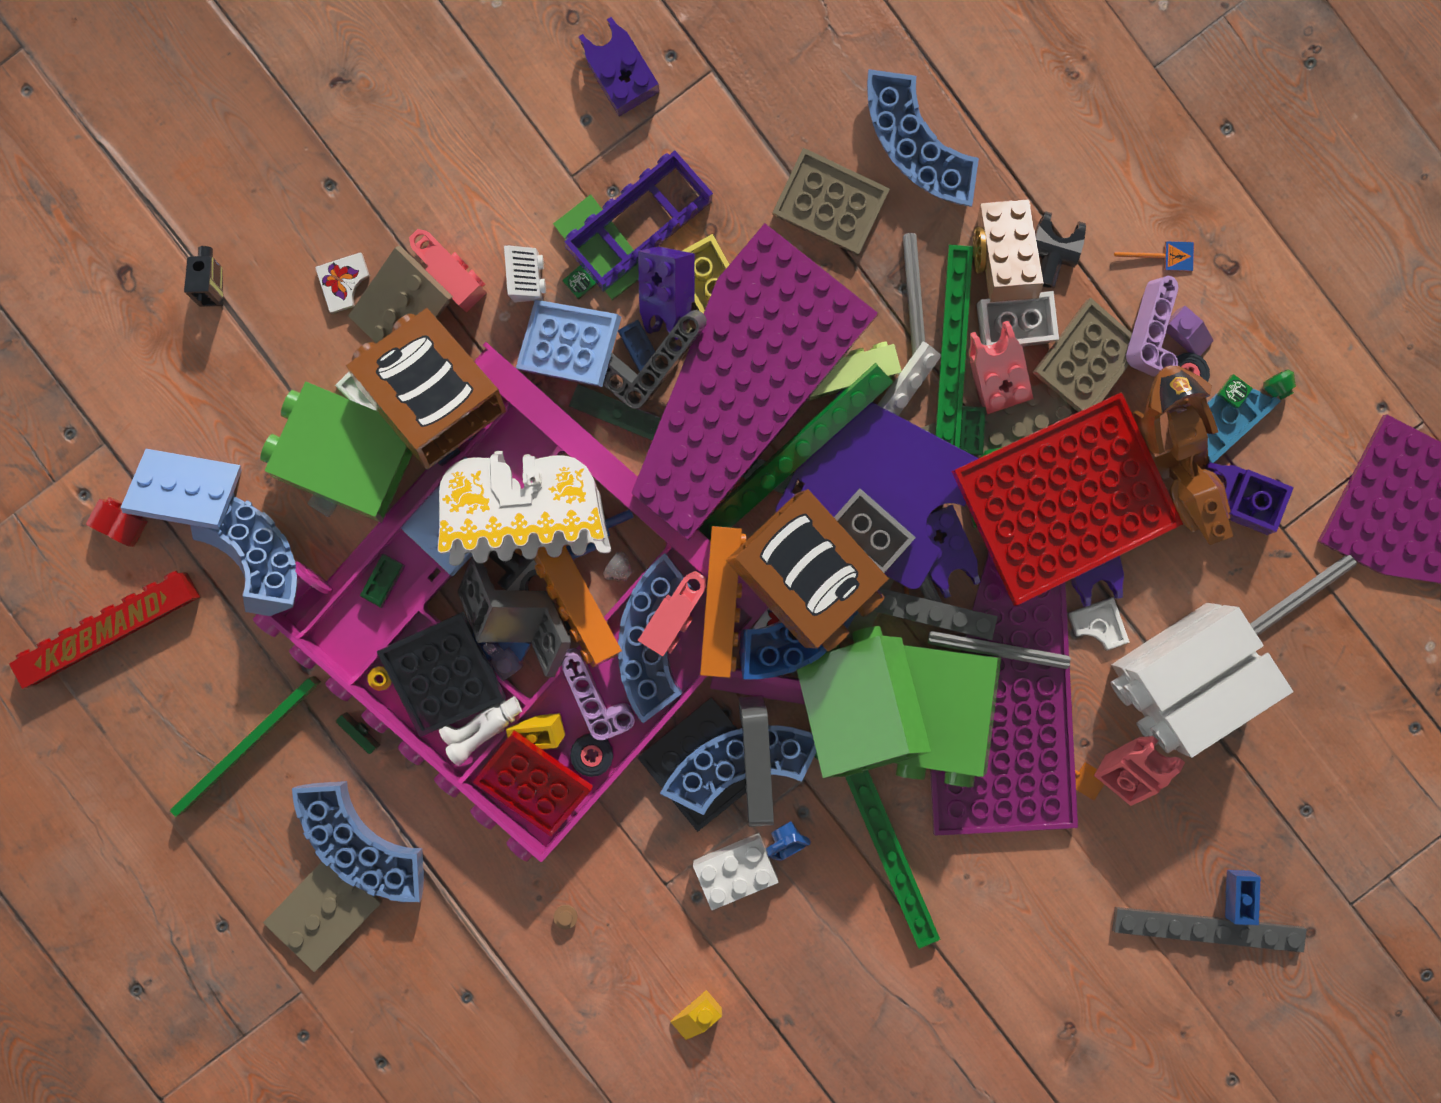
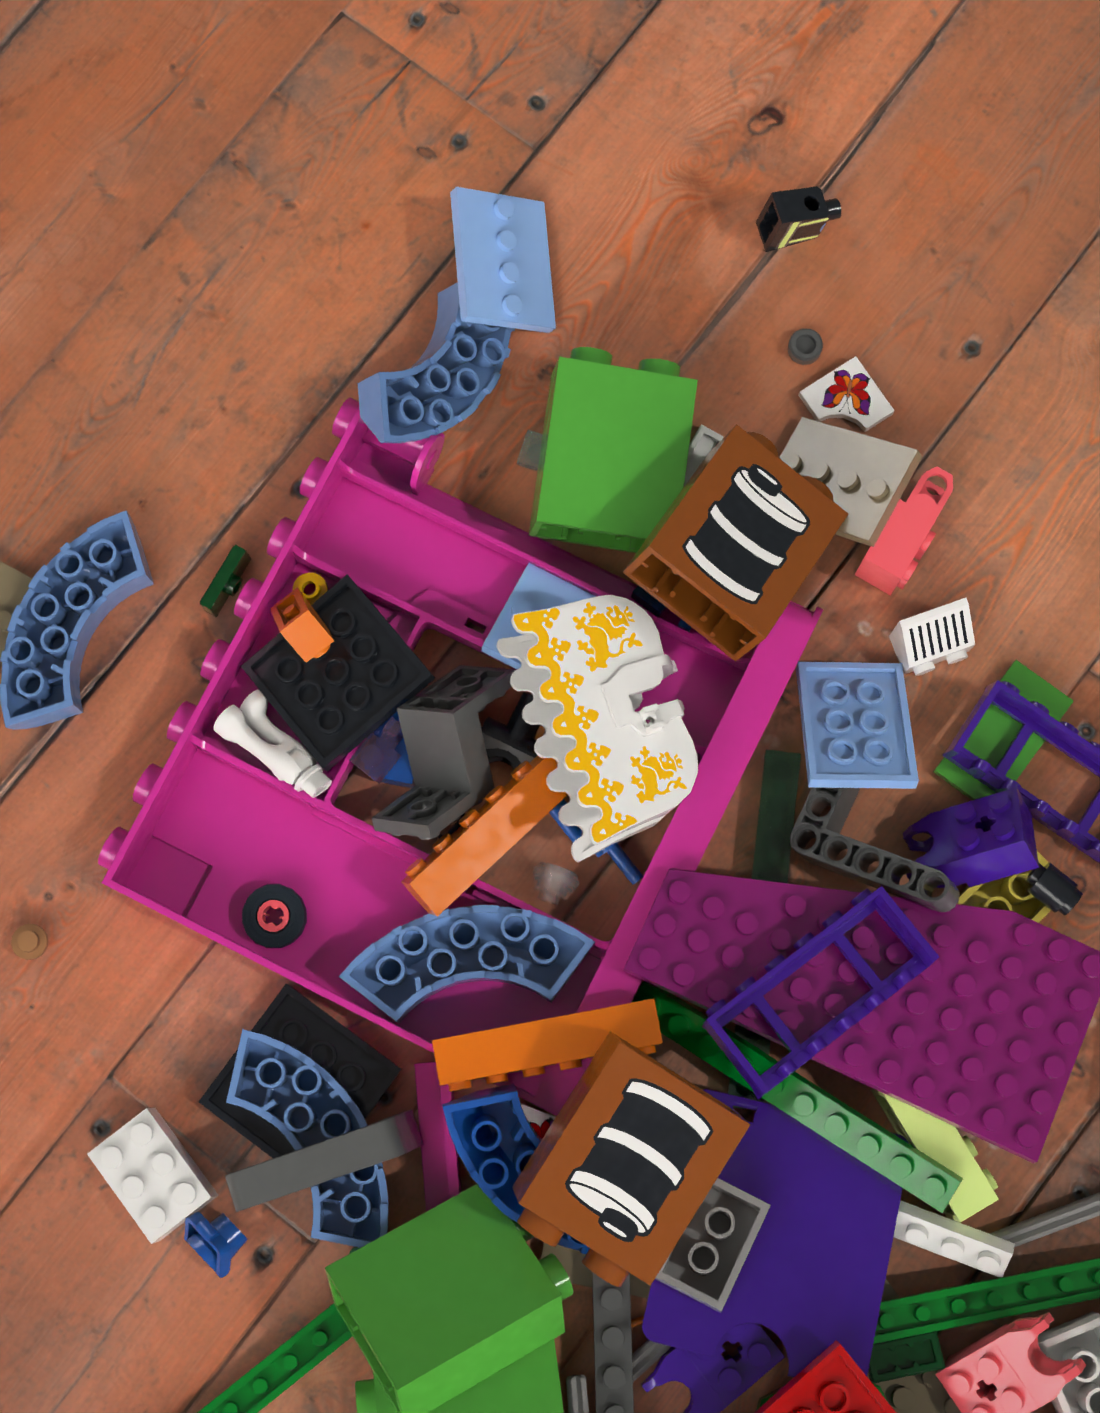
camera: 80 degrees right, 10 degrees down
(104, 630) = (285, 212): red brick -> none
(111, 521) = (430, 193): red brick -> none
(245, 746) = (171, 435): green tile -> none
(298, 299) = (805, 346): none -> dark grey tile
(382, 580) = (448, 557): dark green plate -> none
(404, 690) = (302, 626): none -> orange slope
(532, 783) = (212, 842): red plate -> none
(541, 730) = (286, 828): yellow slope -> none
(579, 282) = (944, 718): green tile -> none
(591, 693) = (363, 891): lavender beam -> none
(637, 343) = (883, 822): dark blue plate -> none
(672, 616) = (507, 976): coral brick -> none
(706, 419) = (808, 947): none -> dark purple window
(710, 247) = (1053, 888): none -> black brick

